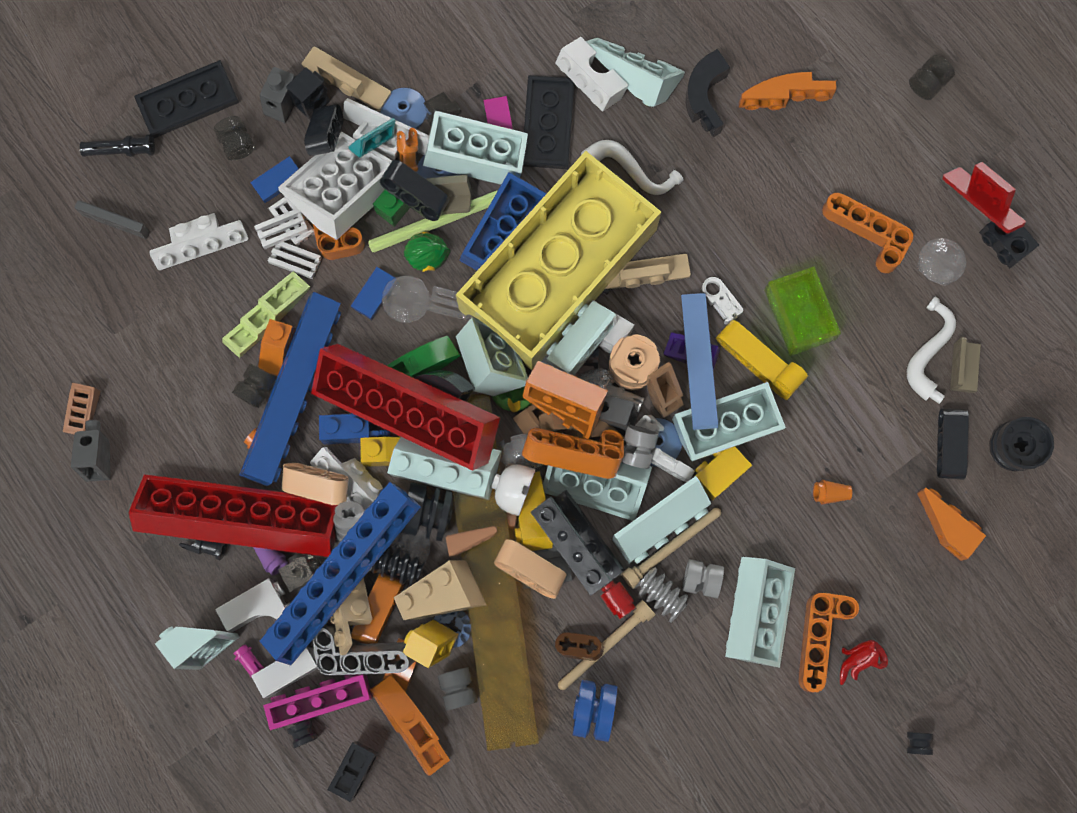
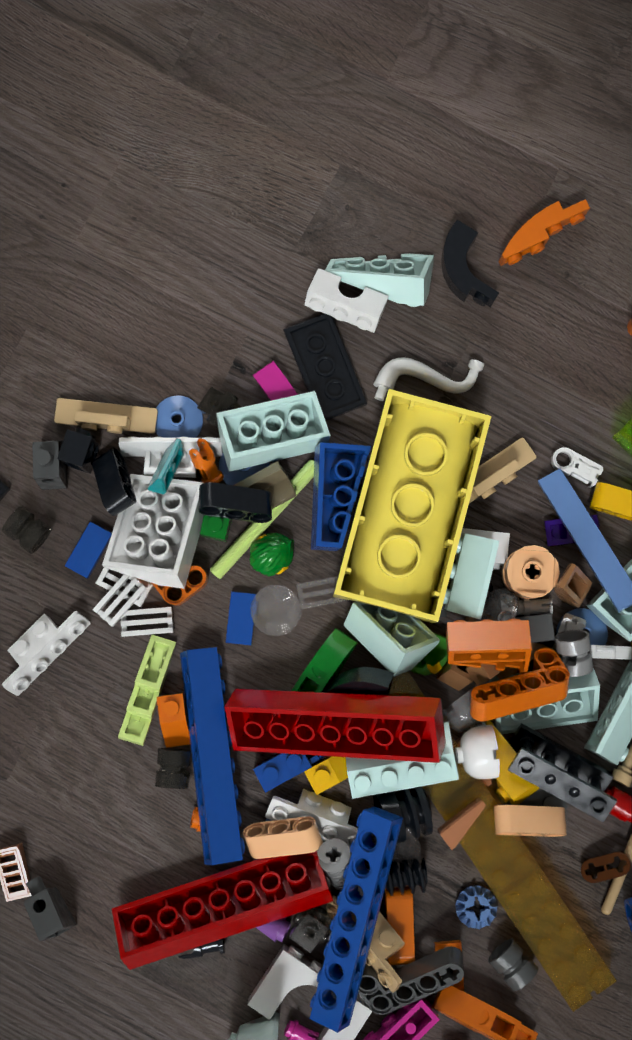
camera: 30 degrees left, 5 degrees up
(429, 643) = (470, 938): yellow brick -> none
(441, 592) = (460, 885): tan wedge -> none

